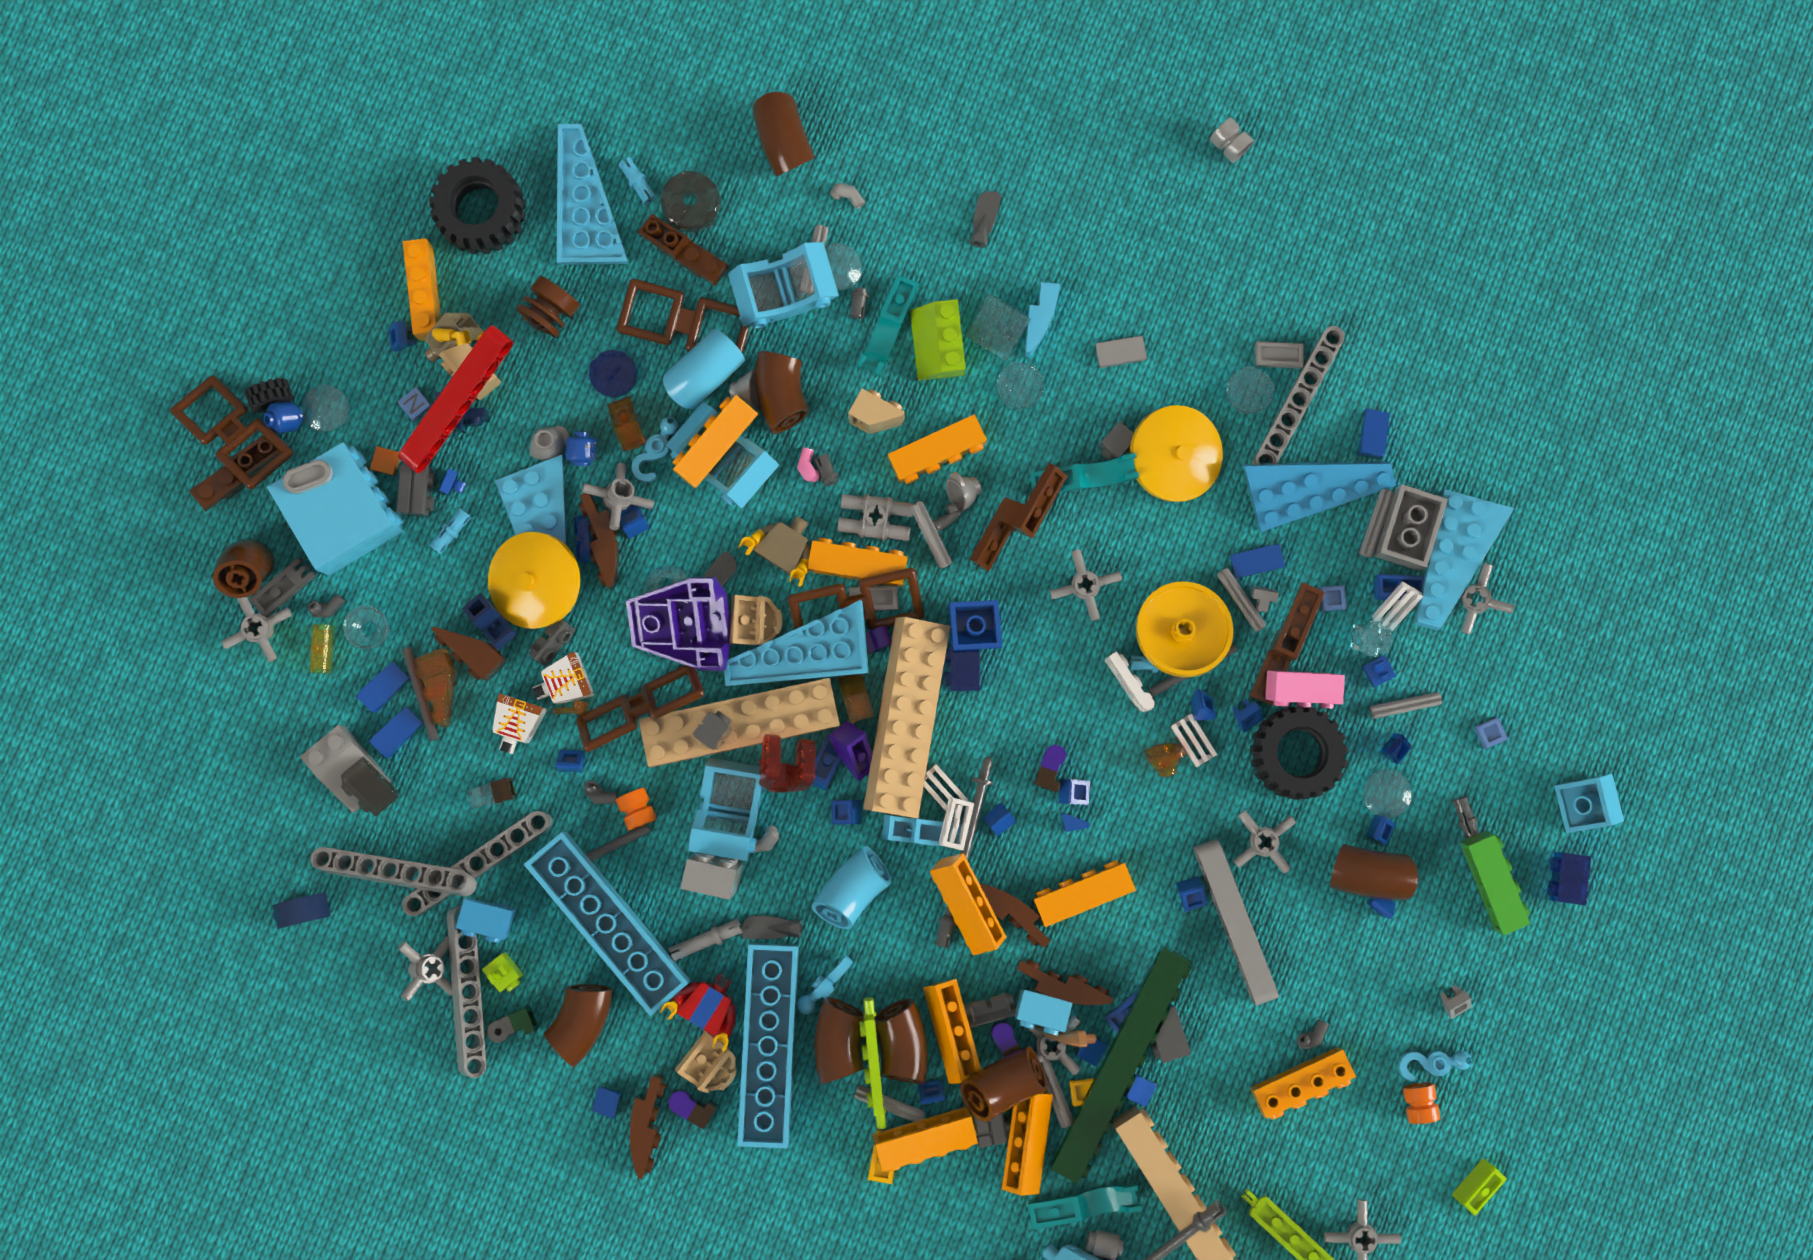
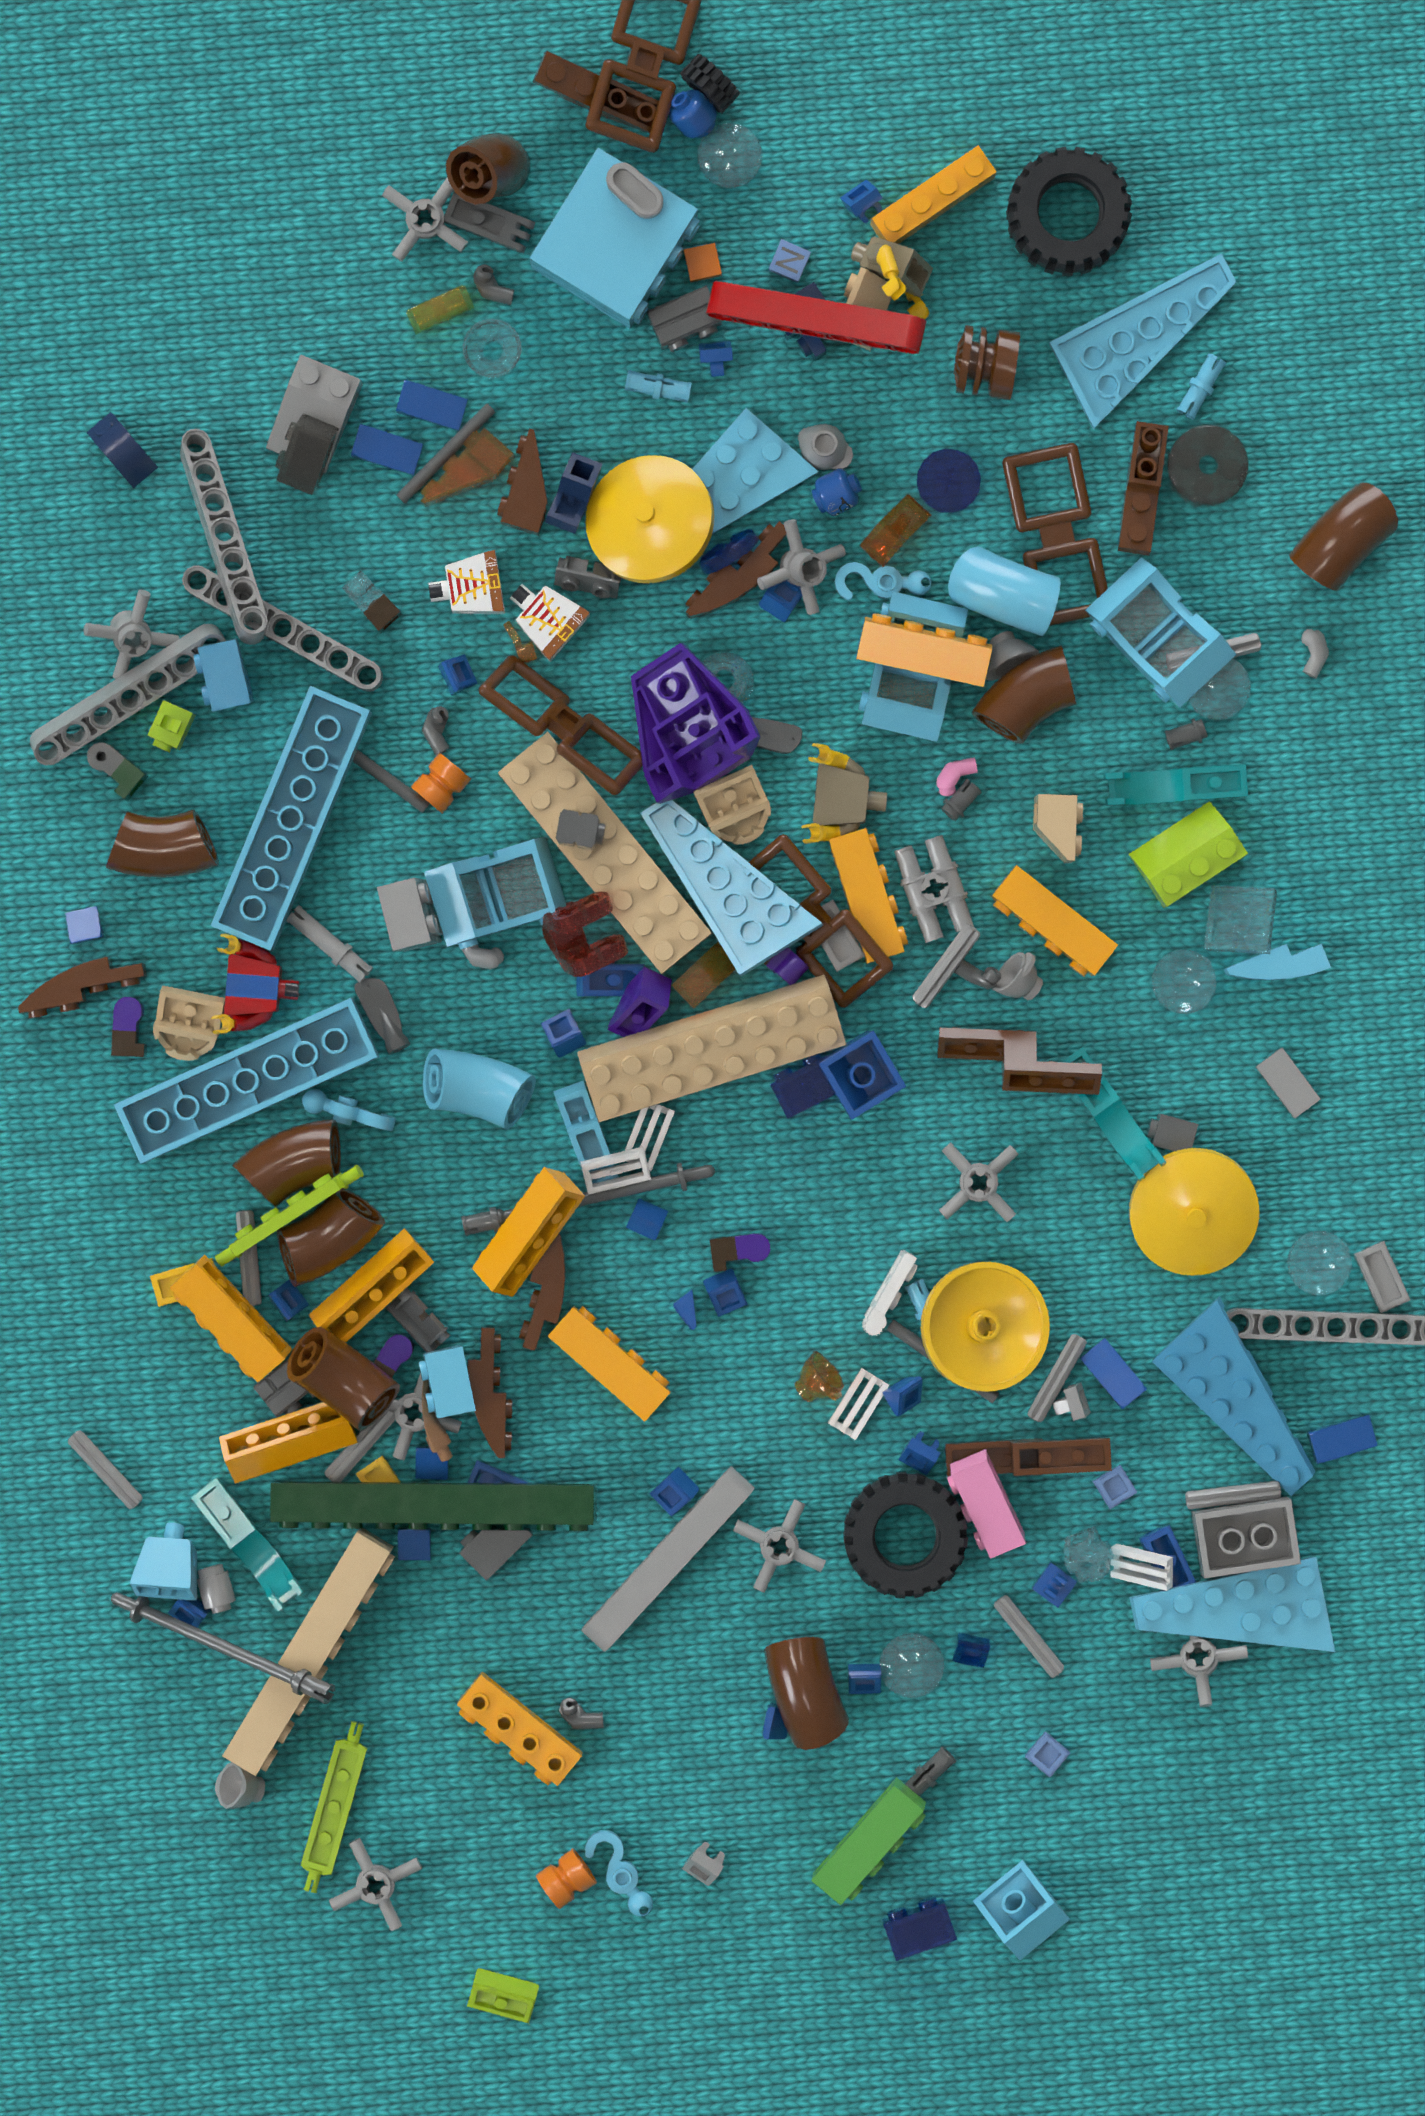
camera: 65 degrees right, 5 degrees up
(984, 218) = (1371, 834): dark grey piece -> none

